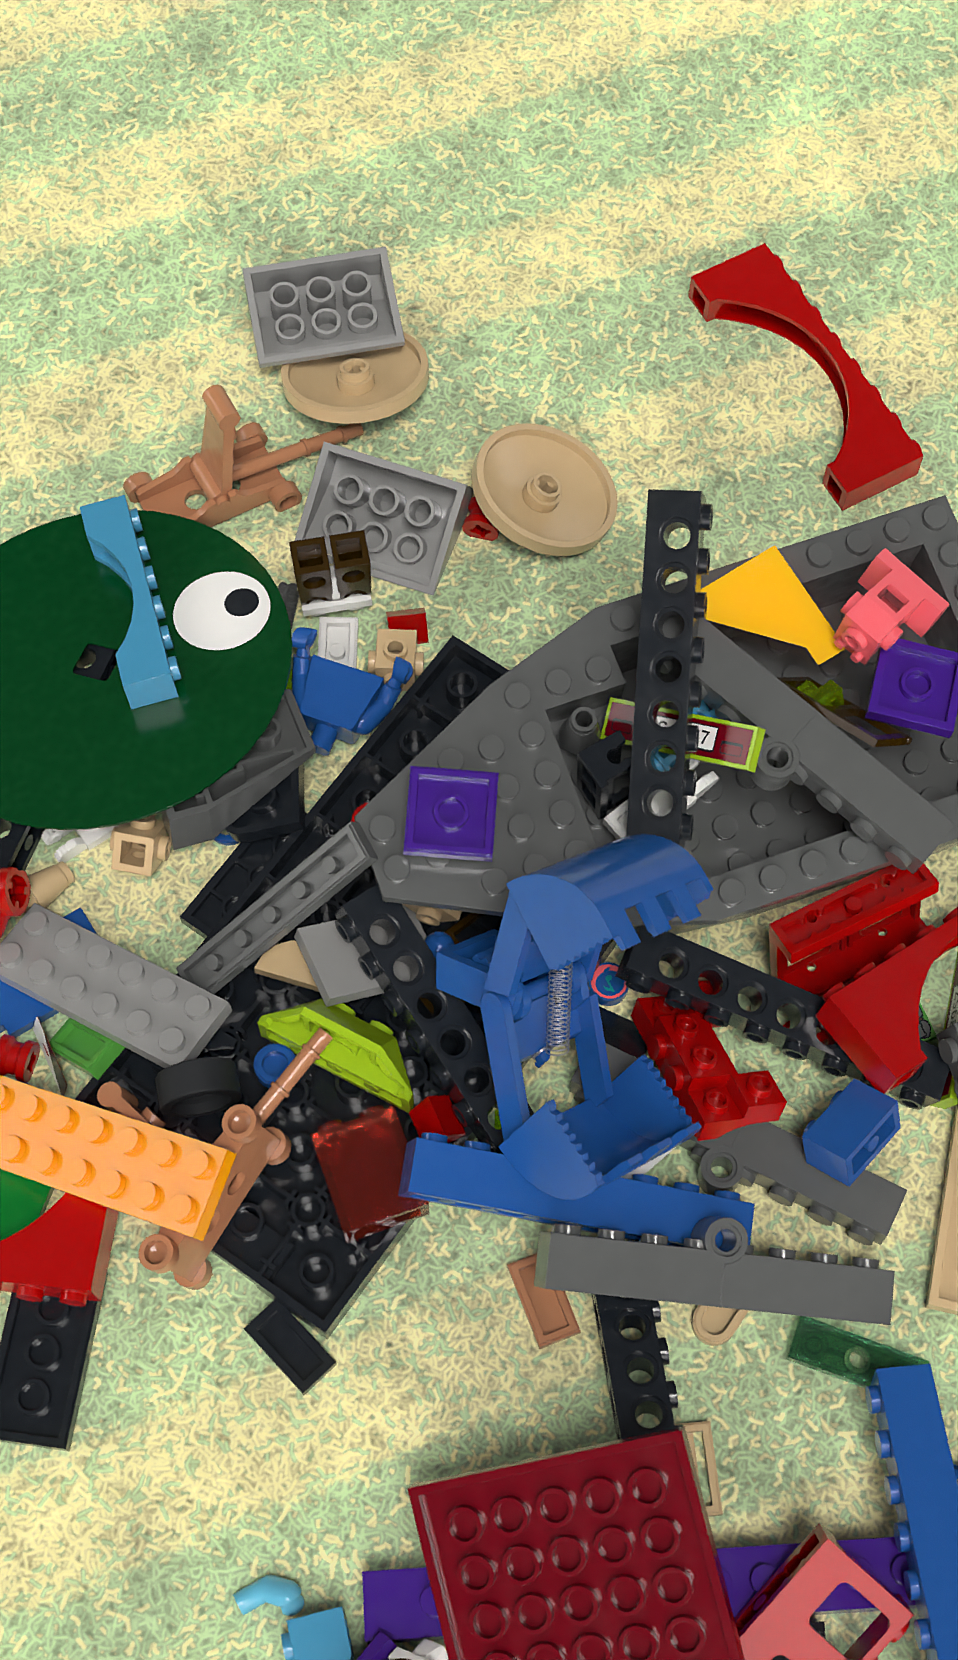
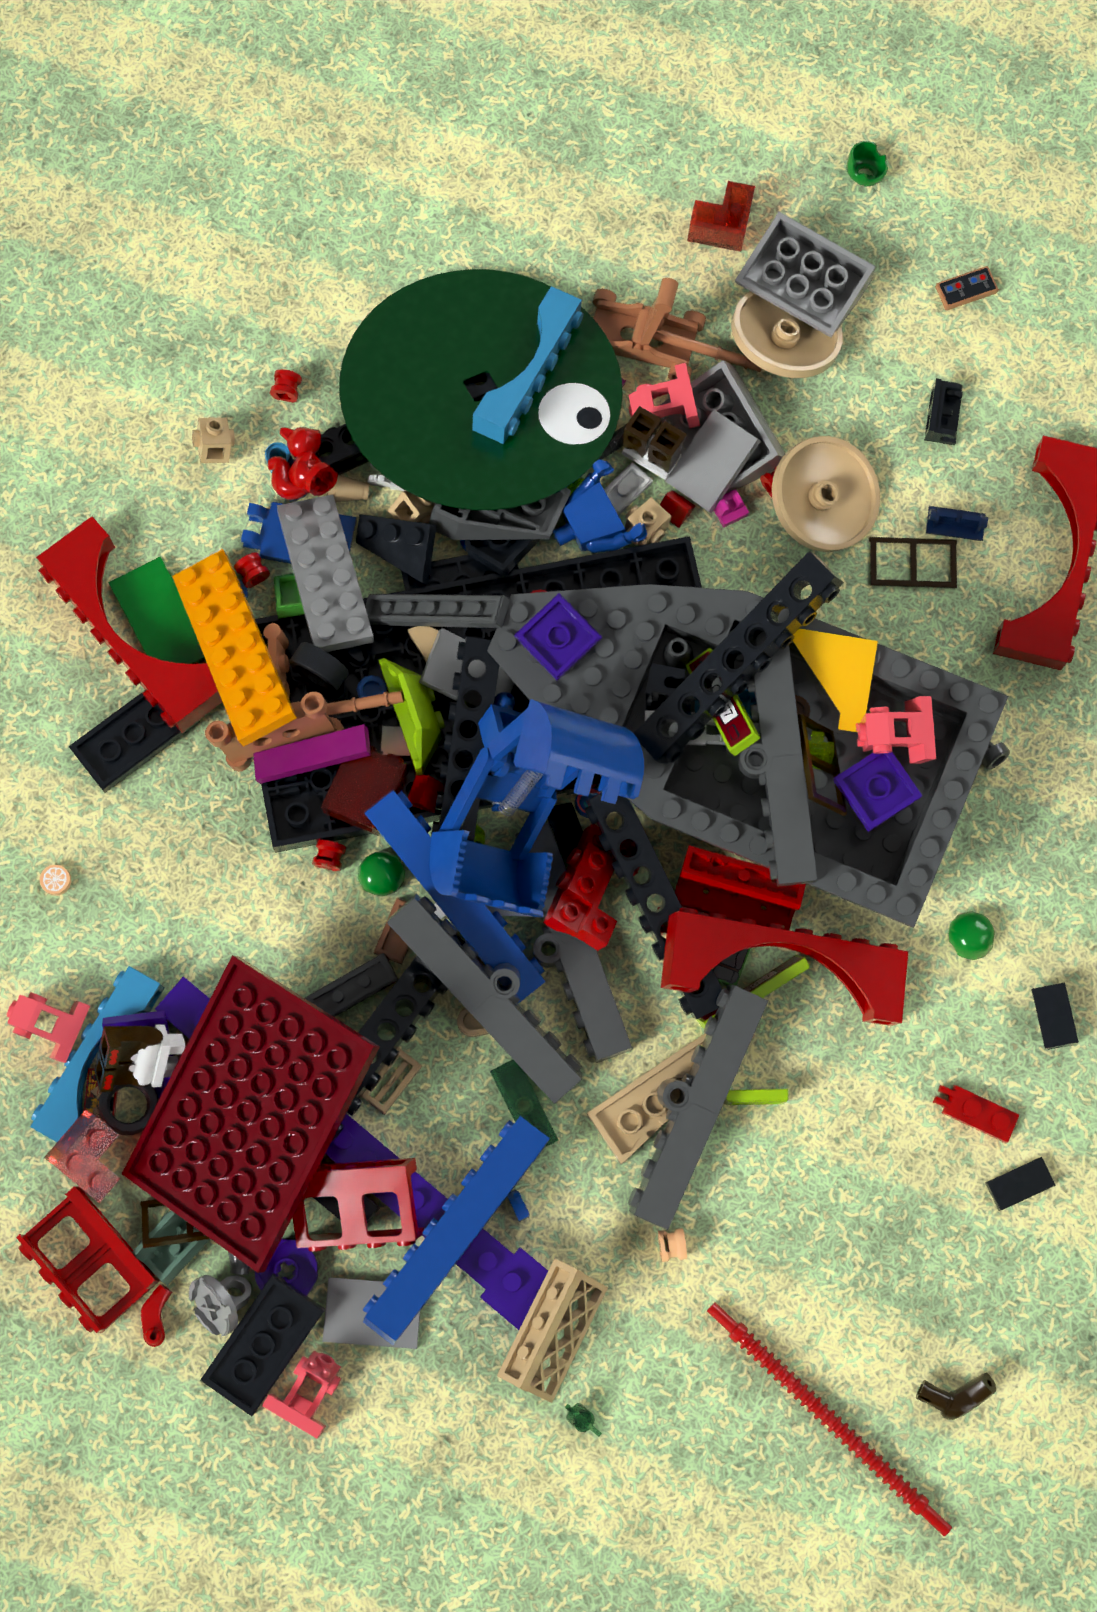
camera: 40 degrees right, 10 degrees up
(50, 1057) = (269, 585): sticker -> none
(101, 1605) = (55, 880): none -> light nougat tile
(156, 890) = (399, 542): none -> black wing
(194, 323) = (723, 224): none -> clear red brick
(271, 1590) = (139, 947): medium azure arm -> none
(273, 168) = (865, 156): none -> green hair
(278, 1188) = (312, 754): none -> magenta tile
(290, 1346) = (253, 840): black tile -> none
(314, 505) = (680, 395): none -> coral tile
(348, 1099) = (393, 741): none -> white sticker
(391, 1286) = (329, 855): none -> red wheel
(404, 546) = (712, 461): none -> light grey tile
(460, 581) = (731, 509): none -> dark pink tile
(465, 1255) = (381, 873): none -> green hair
(483, 211) = (966, 288): none -> tile
(557, 1399) = (354, 986): none -> dark grey tile
(574, 333) = (943, 412): none -> black hinge
(665, 471) = (913, 563): none -> dark brown window
(689, 420) = (956, 523): none -> dark blue hinge
(851, 1131) = (628, 990): blue brick -> none

